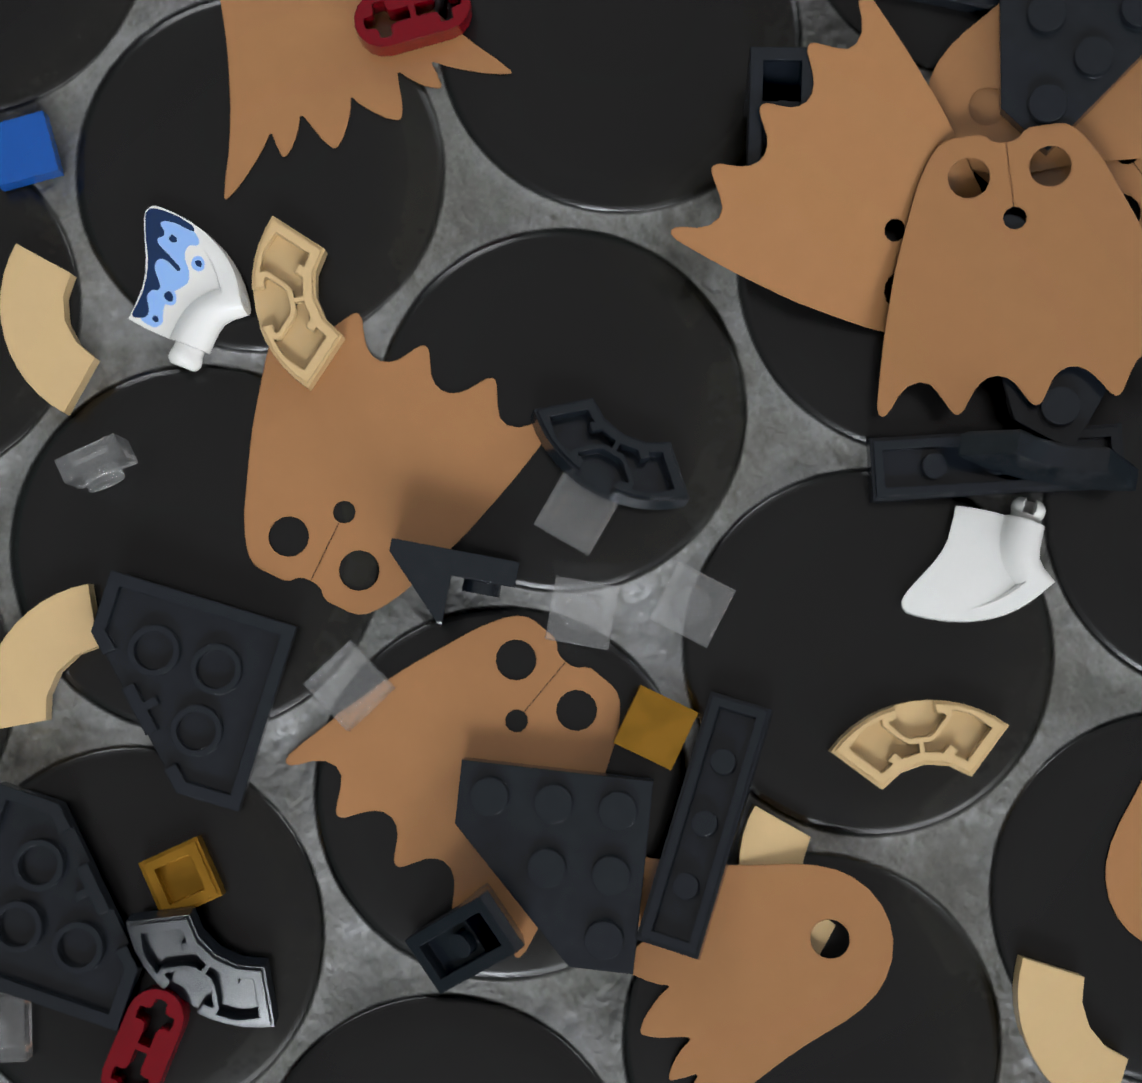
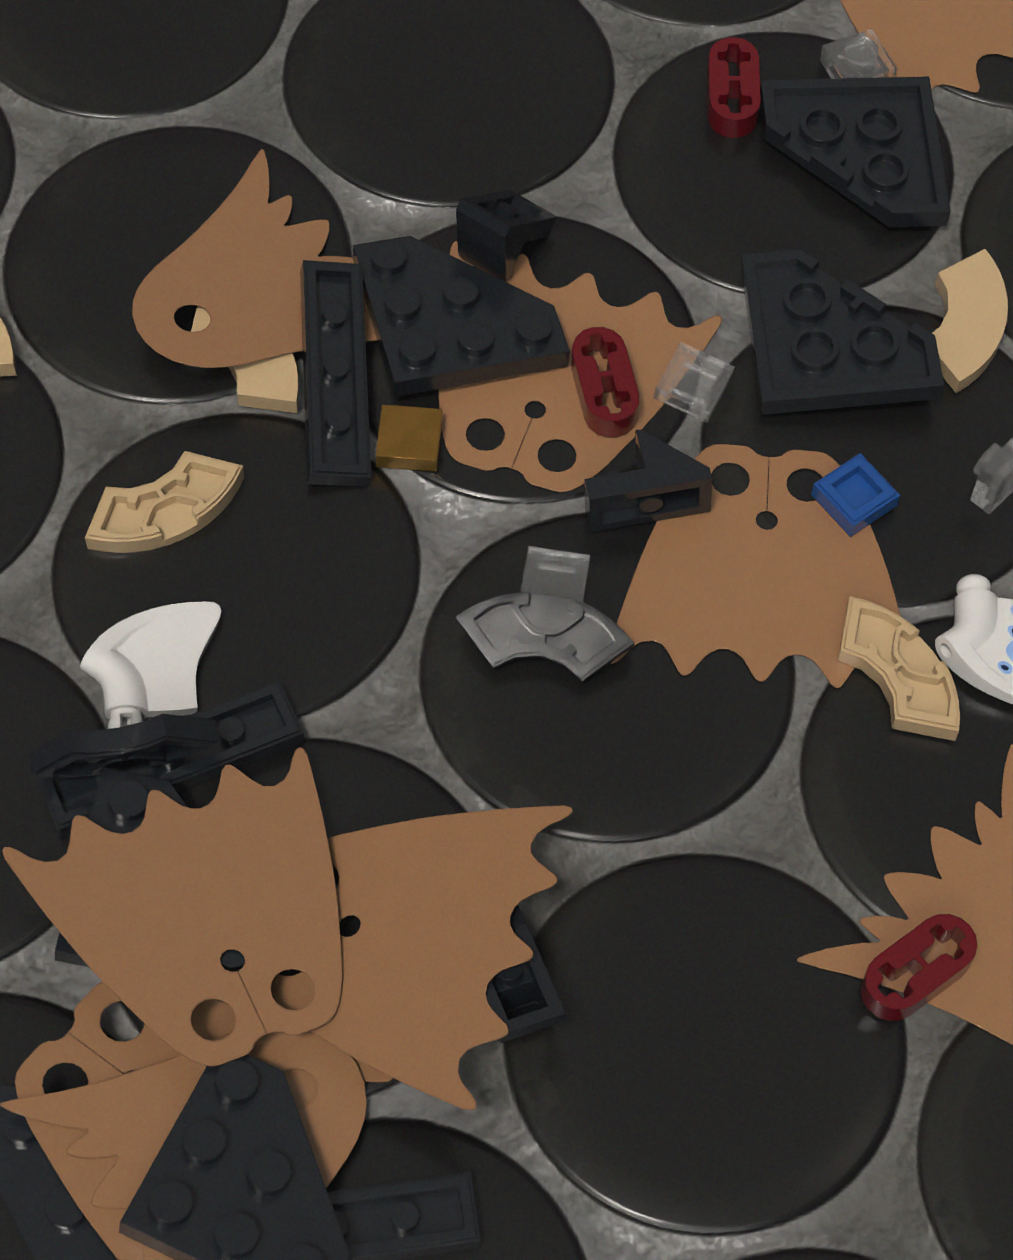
camera: 155 degrees right, 25 degrees down
(182, 876) = (764, 206): pearl gold tile -> none
(201, 971) = (689, 143): black tile -> none
(249, 499) = (855, 495): none -> blue tile
(422, 717) = (616, 379): none -> dark red beam
(582, 613) = (514, 498): clear plate -> none
(692, 604) = (416, 537): clear plate -> none

